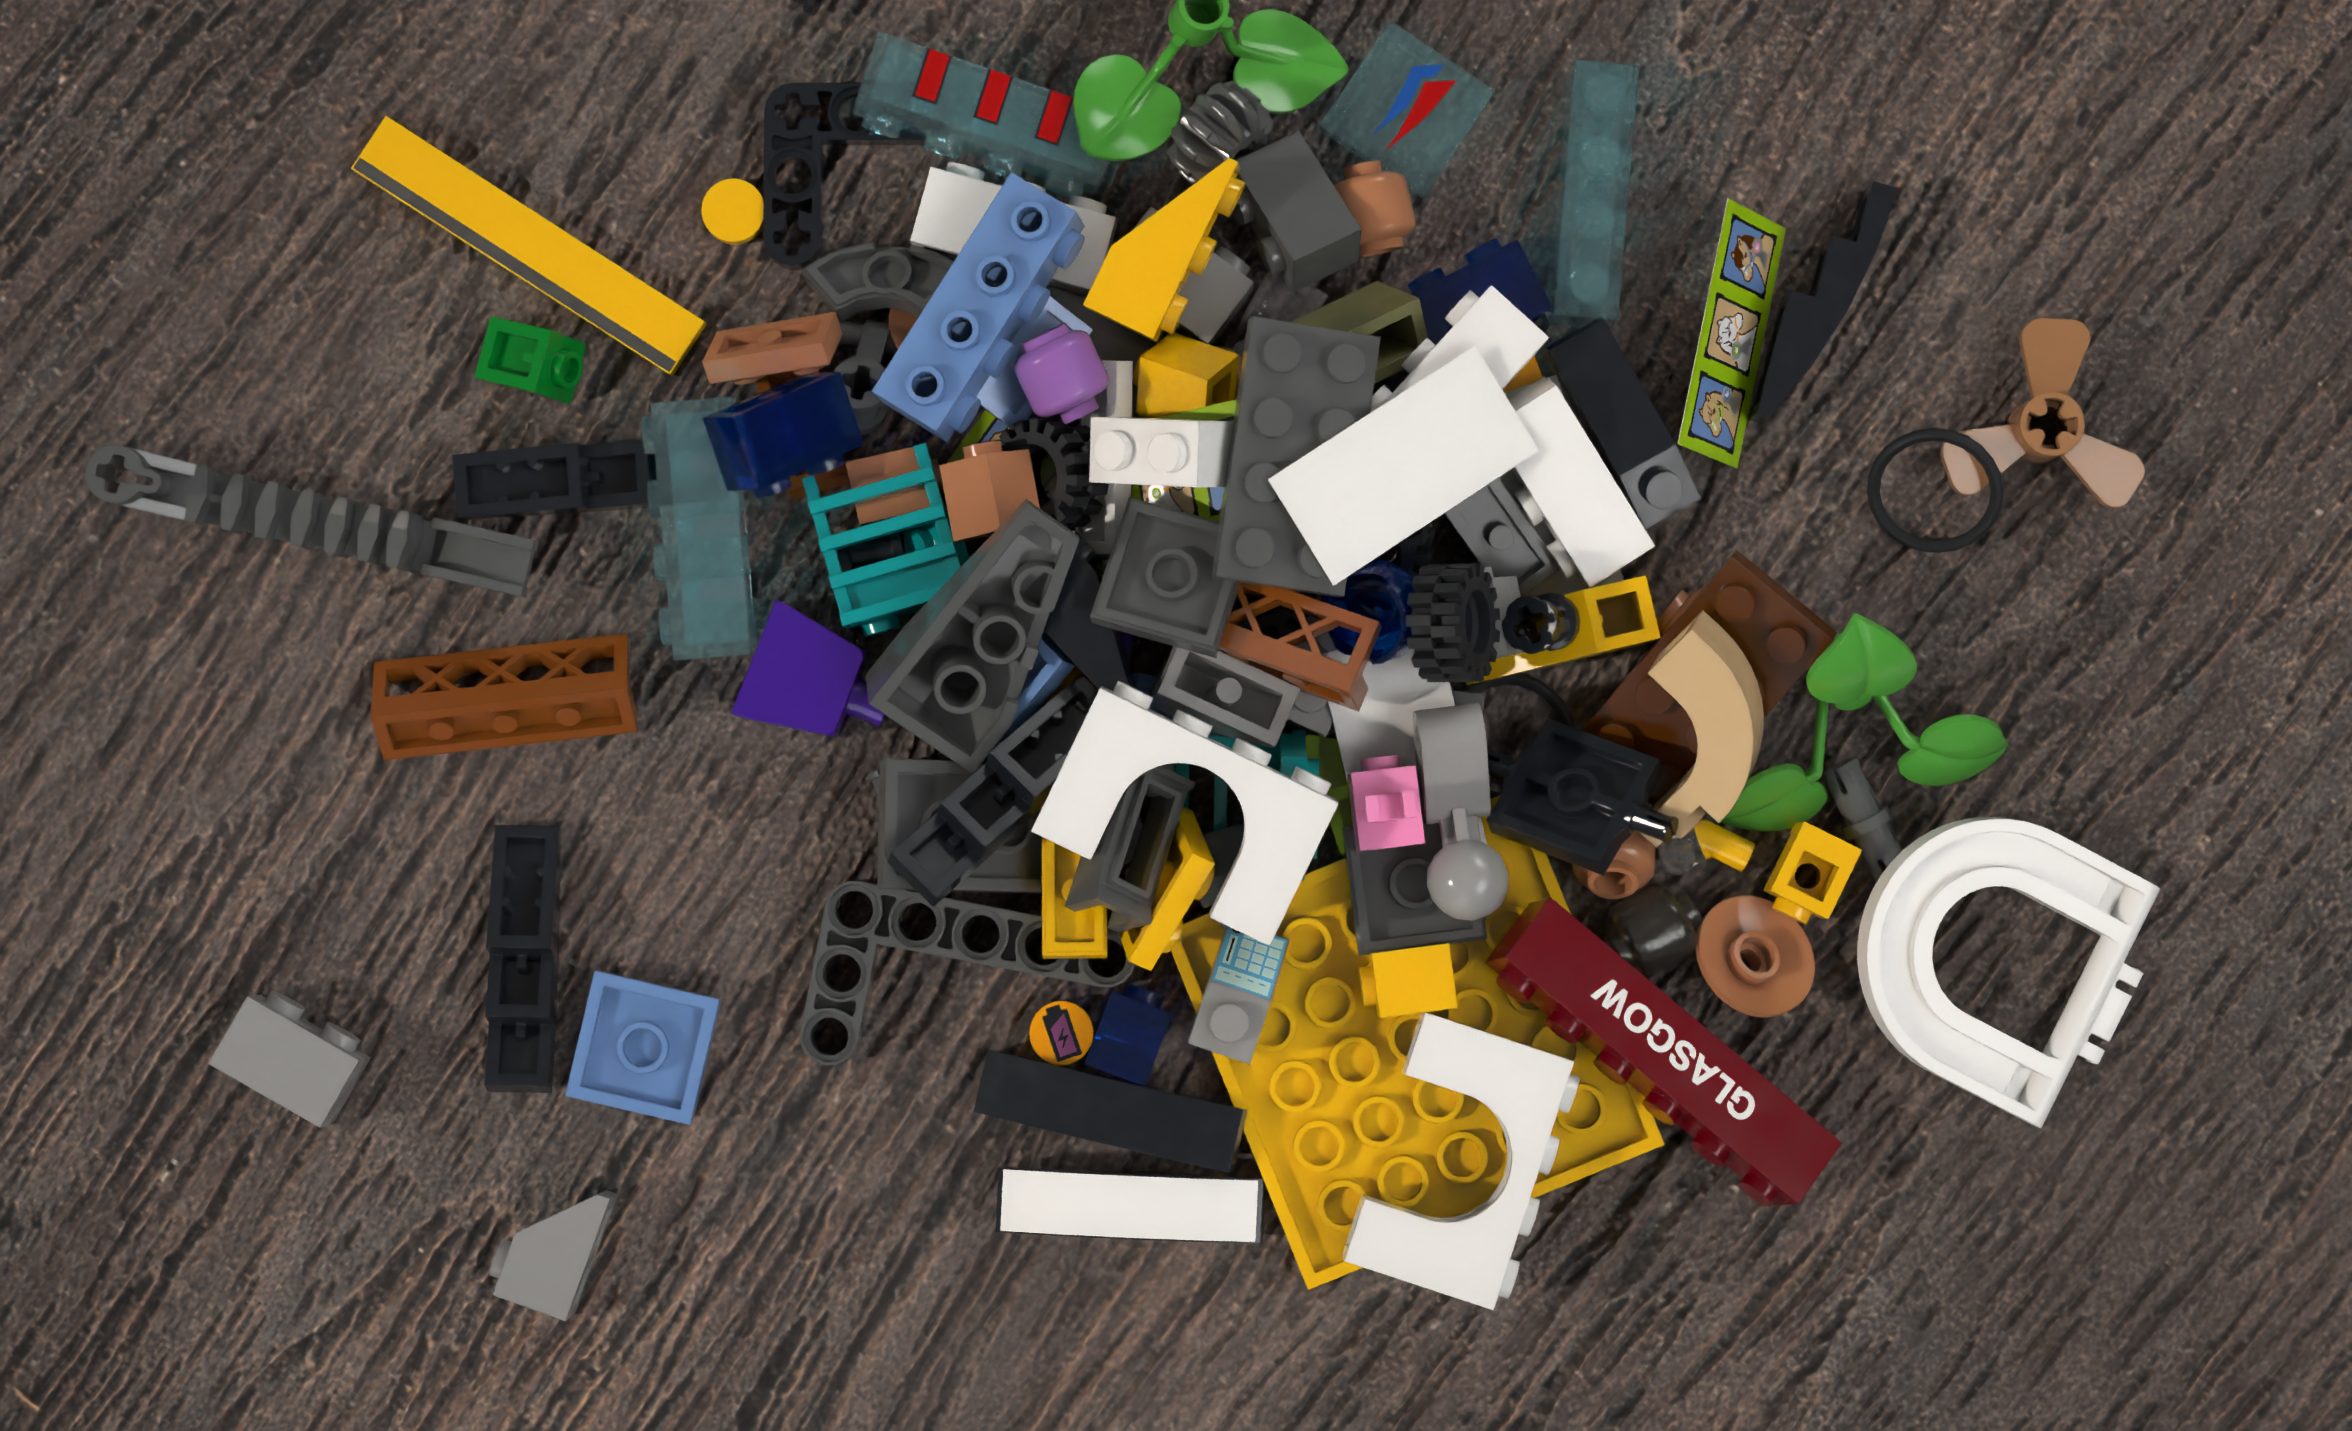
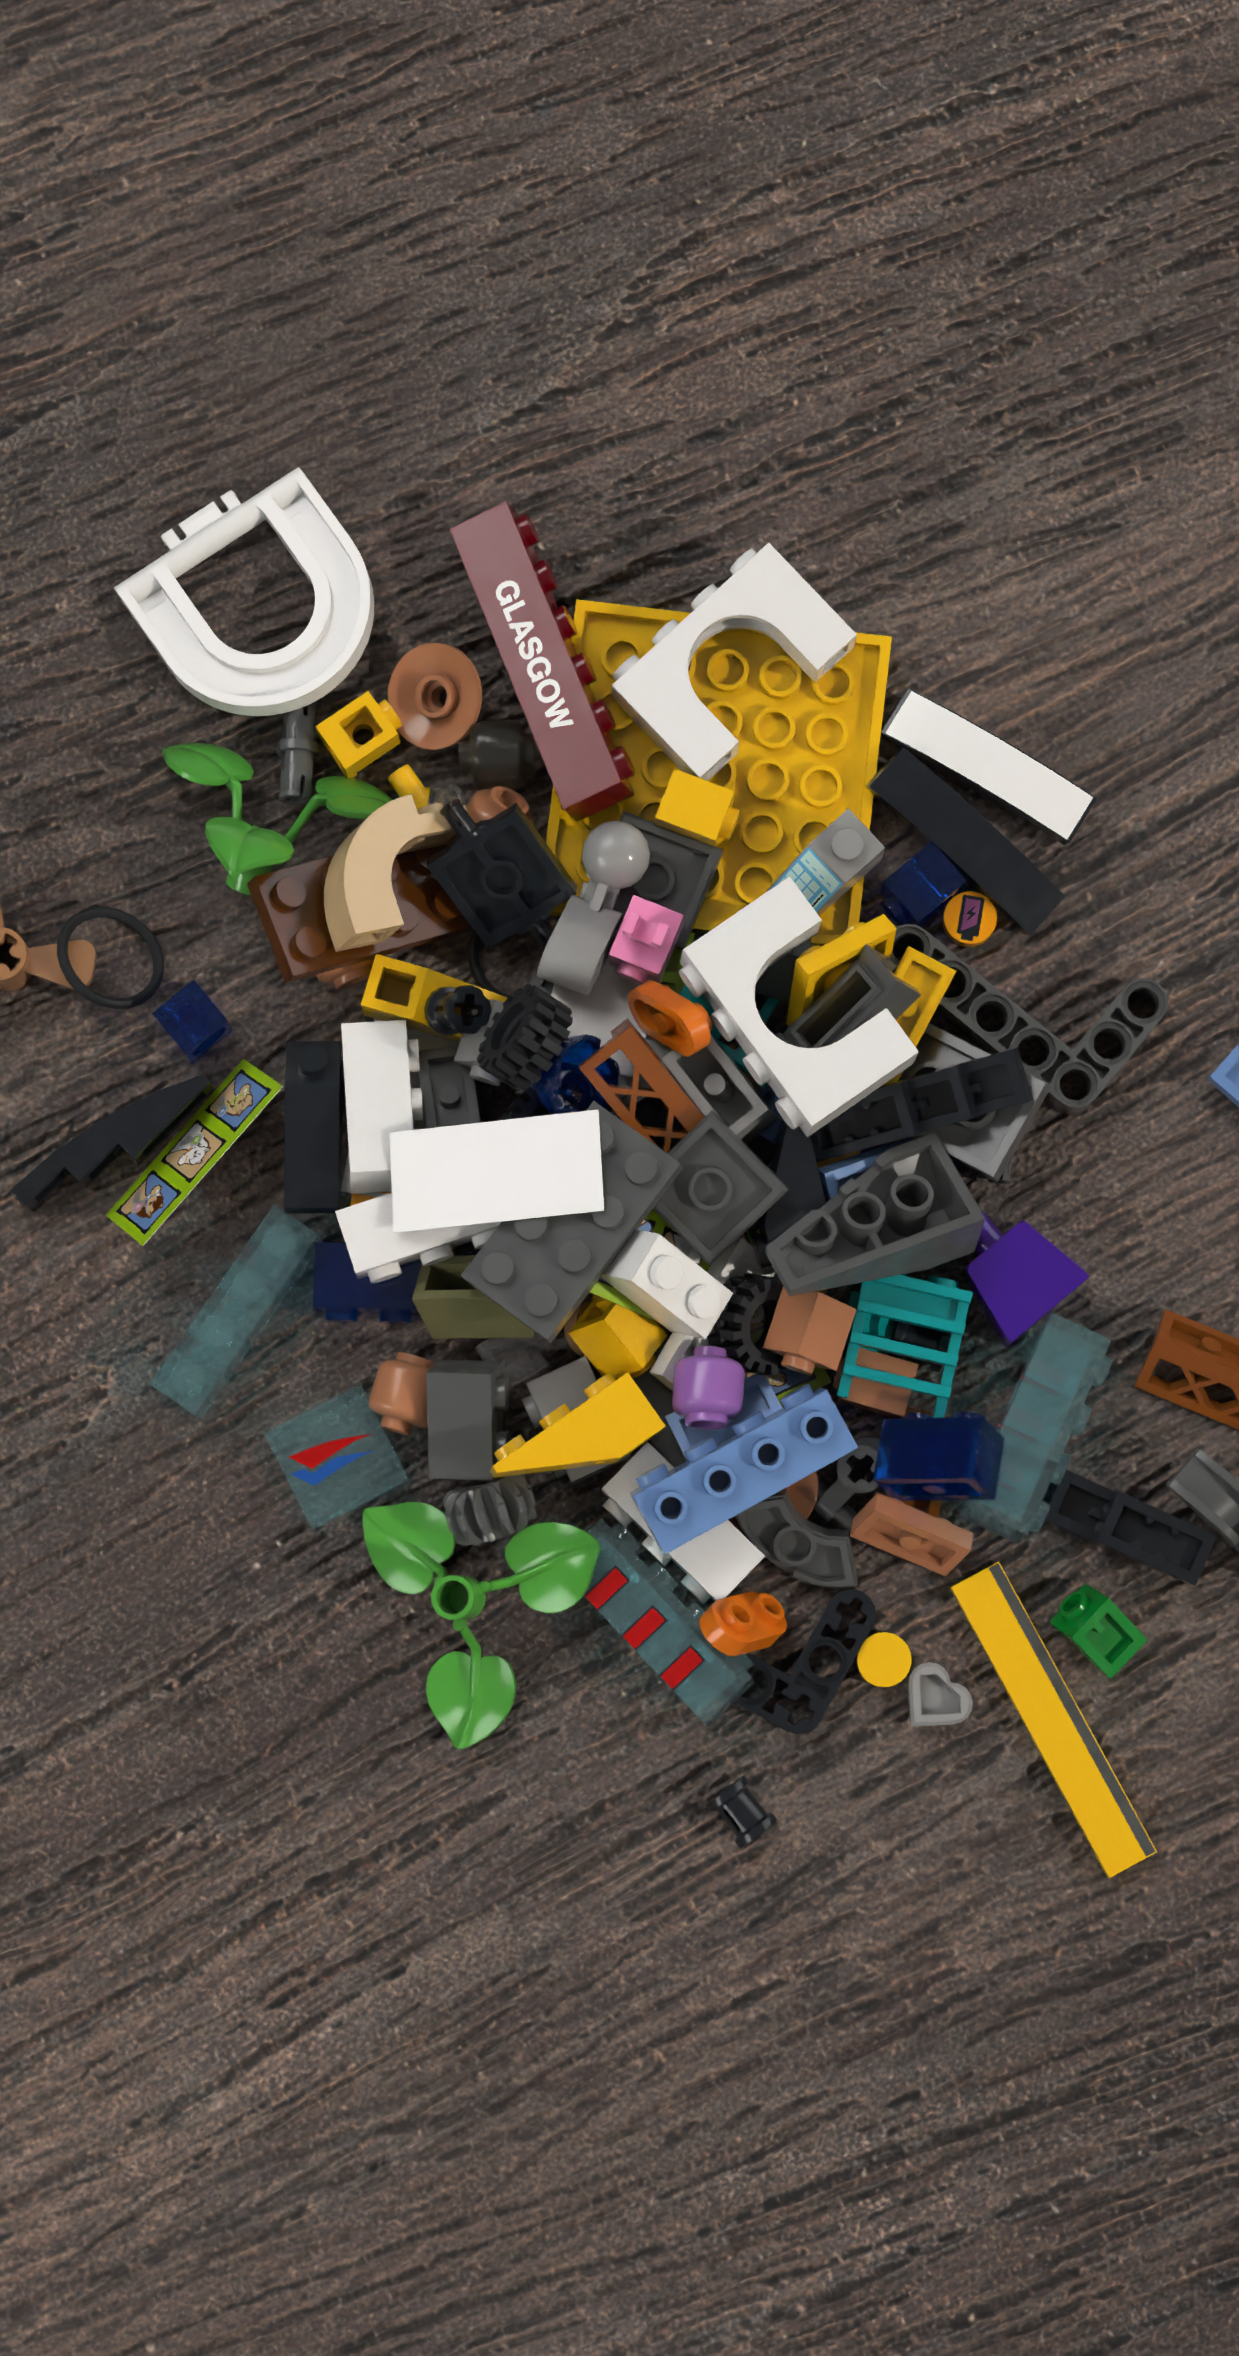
camera: 150 degrees left, 5 degrees down
(659, 202) = (935, 1698): none -> light grey tile
(895, 160) = (743, 1623): none -> orange plate
(1314, 732) = (670, 1018): none -> orange plate
(1811, 470) = (192, 1021): none -> clear blue brick

